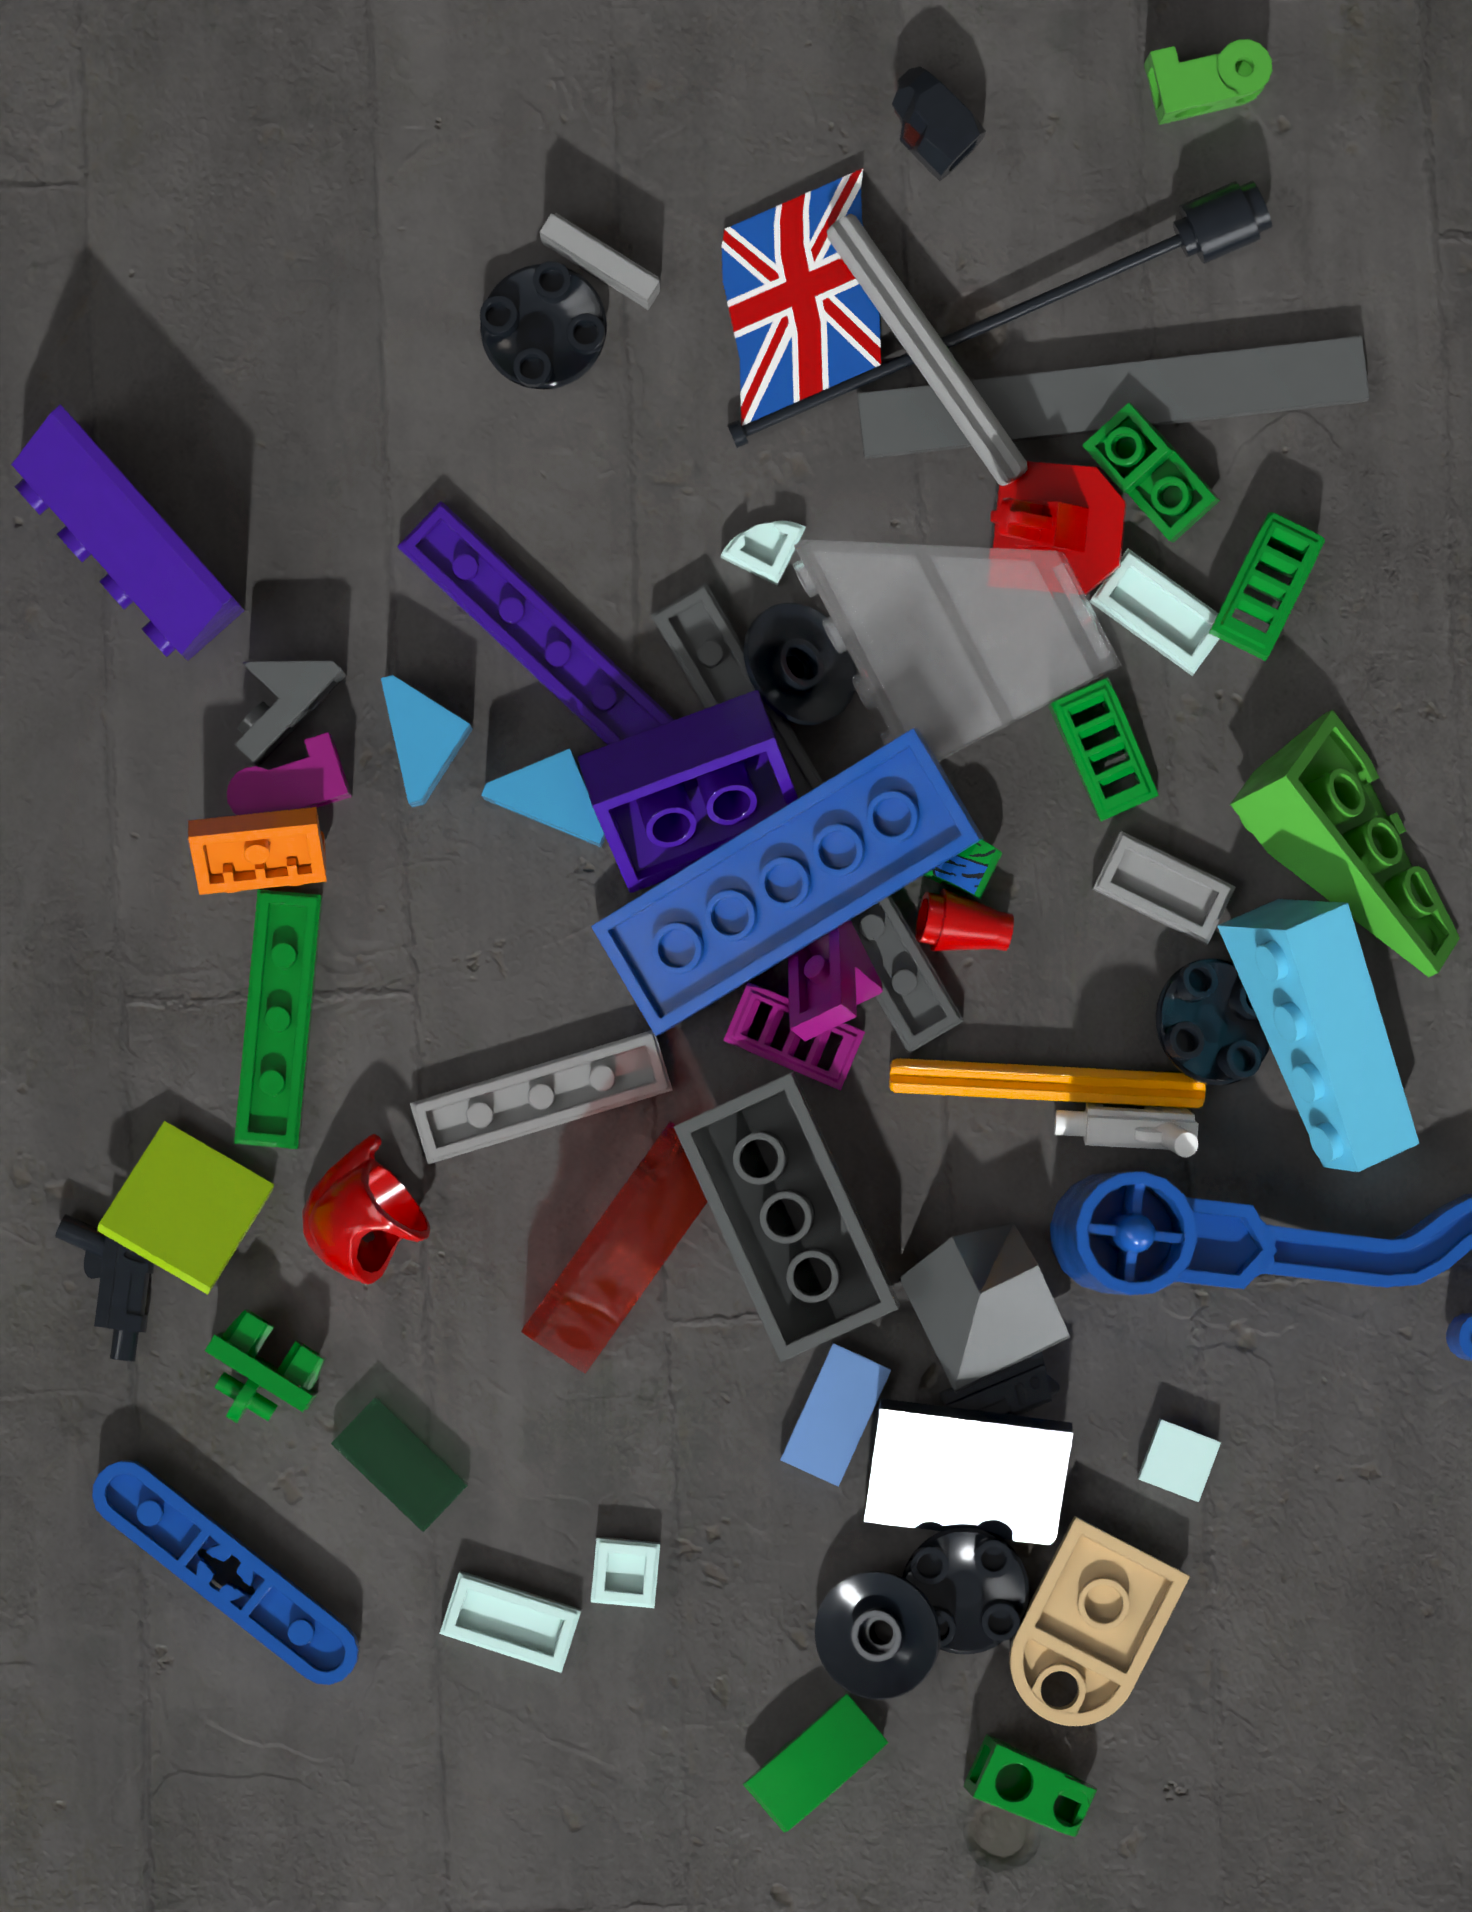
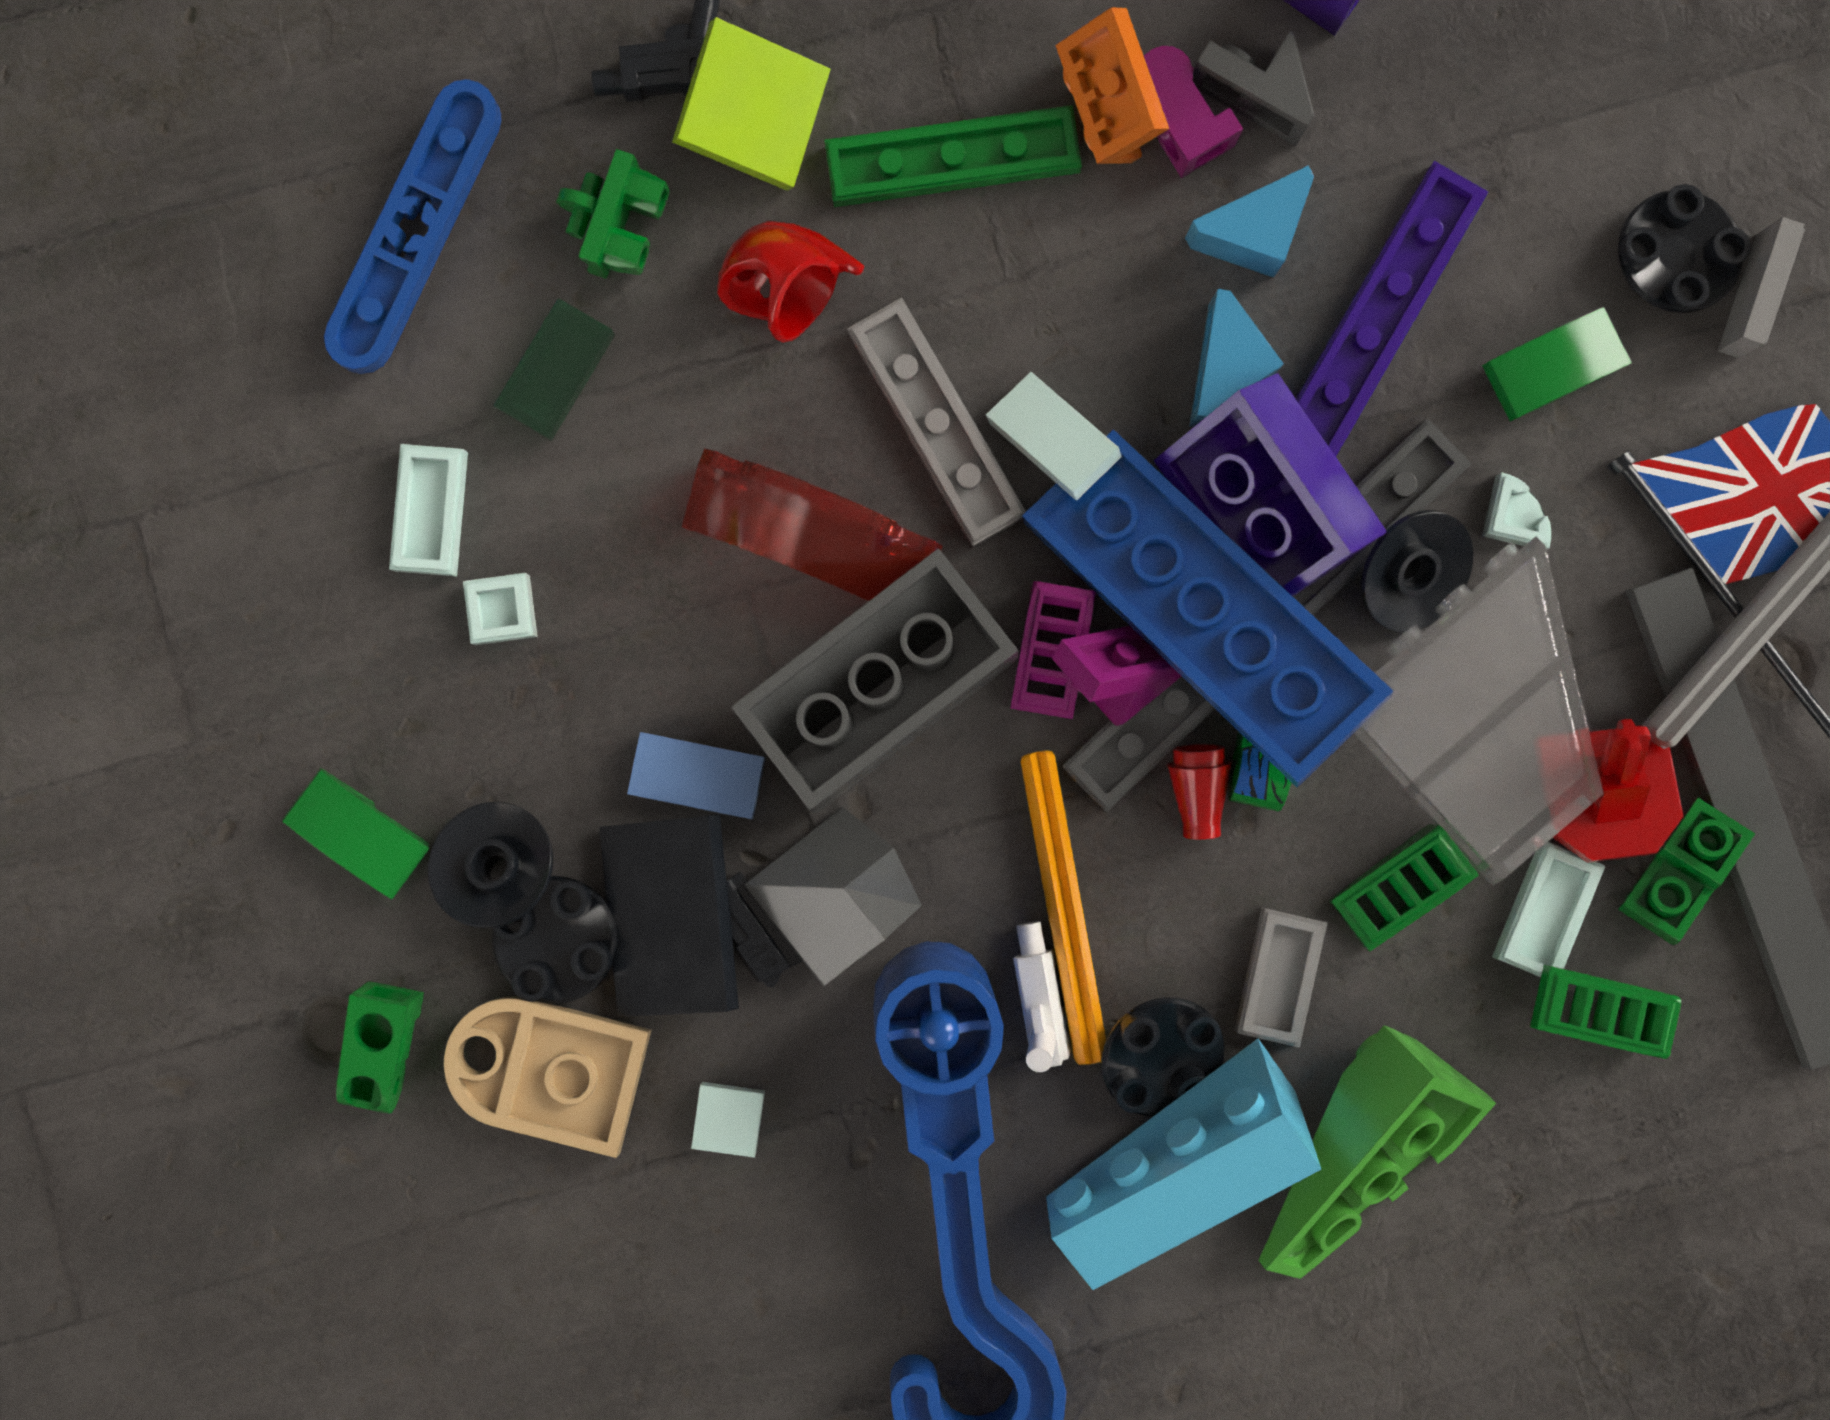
camera: 85 degrees right, 0 degrees up
(583, 986) = (1053, 435): none -> light aqua tile
(627, 475) = (1556, 364): none -> green slope

